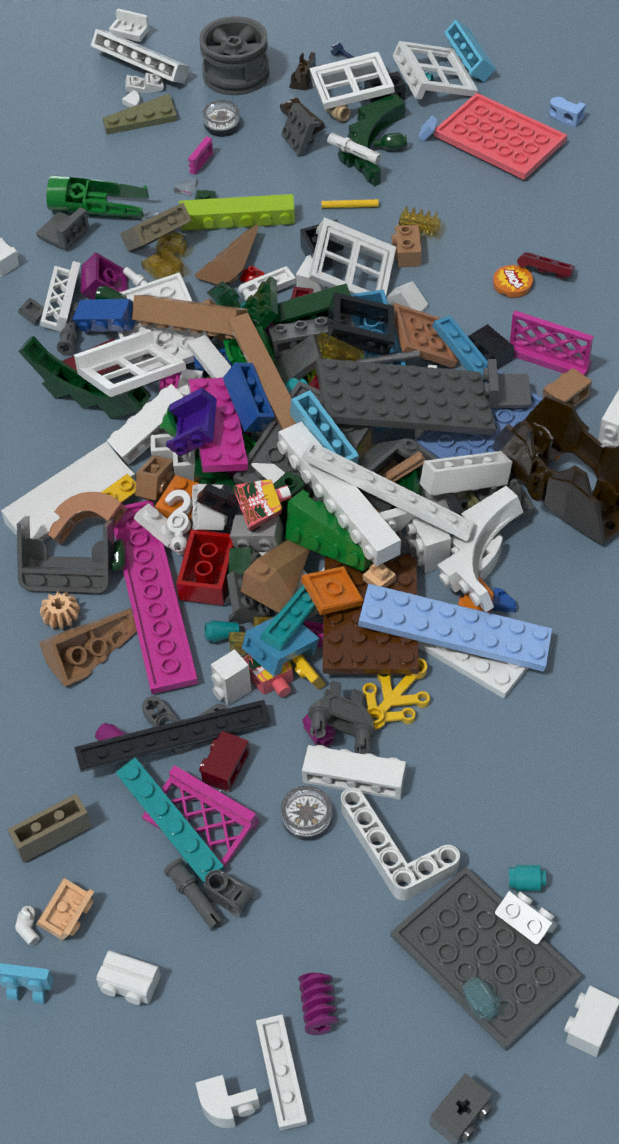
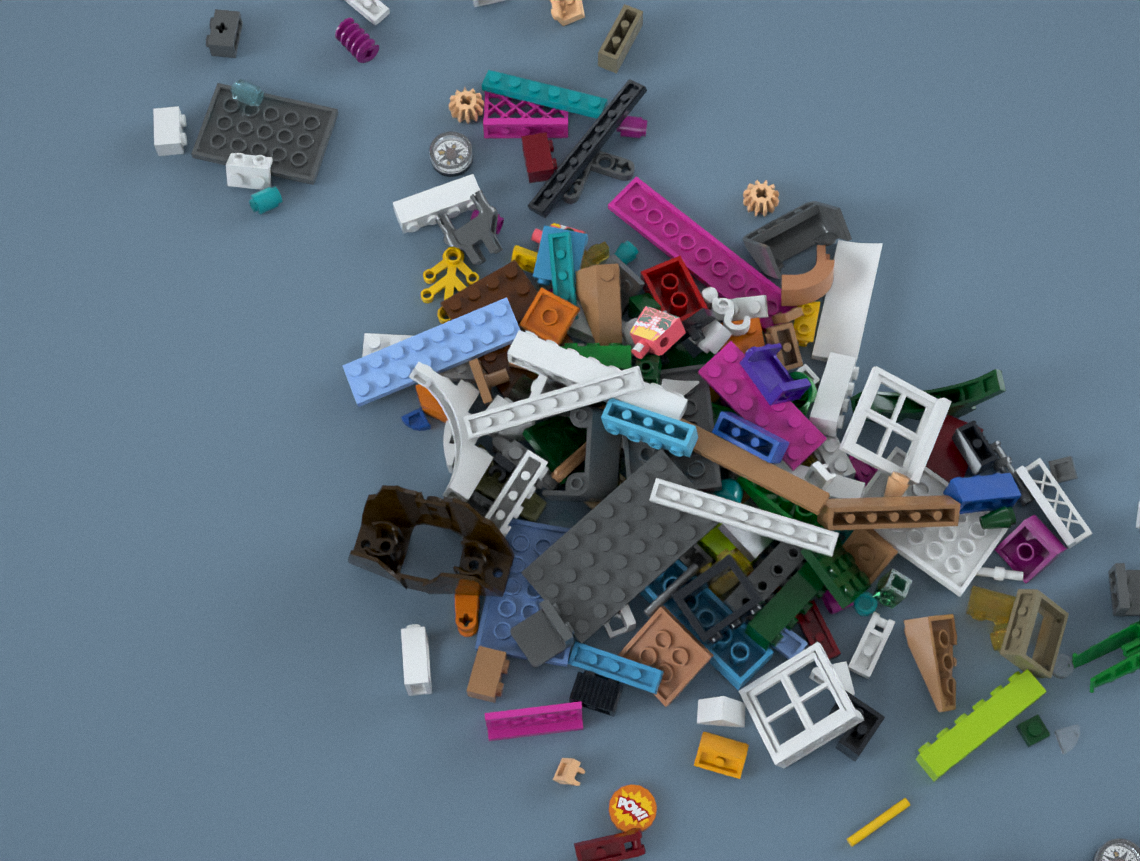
camera: 145 degrees right, 15 degrees up
(80, 649) = (719, 173): medium nougat wedge -> none
(82, 336) = (974, 448): none -> black brick
(120, 556) = (748, 259): dark green arm -> none
(131, 497) = (788, 316): none -> medium nougat tile
(164, 336) = (896, 485): none -> light nougat cone
(188, 885) = (498, 63): dark grey pin -> none
(200, 155) = (1090, 788): dark pink tile -> none
(217, 359) = (819, 476): none -> white tile
(230, 678) = (579, 209): white brick -> none
(231, 895) = (466, 72): dark grey piece -> none
(250, 274) = (896, 659): red plant -> none
(254, 866) = (466, 105): none -> light nougat gear
(304, 345) = (744, 517): none -> white tile
(388, 851) = (374, 162): white beam -> none
(407, 246) = (770, 786): medium nougat brick -> none
(424, 278) = (721, 755): none -> light orange panel
(424, 572) = (486, 382): none -> medium nougat tile
(425, 222) = (780, 829): clear yellow piece -> none
(546, 312) = (567, 770): none -> light nougat tile

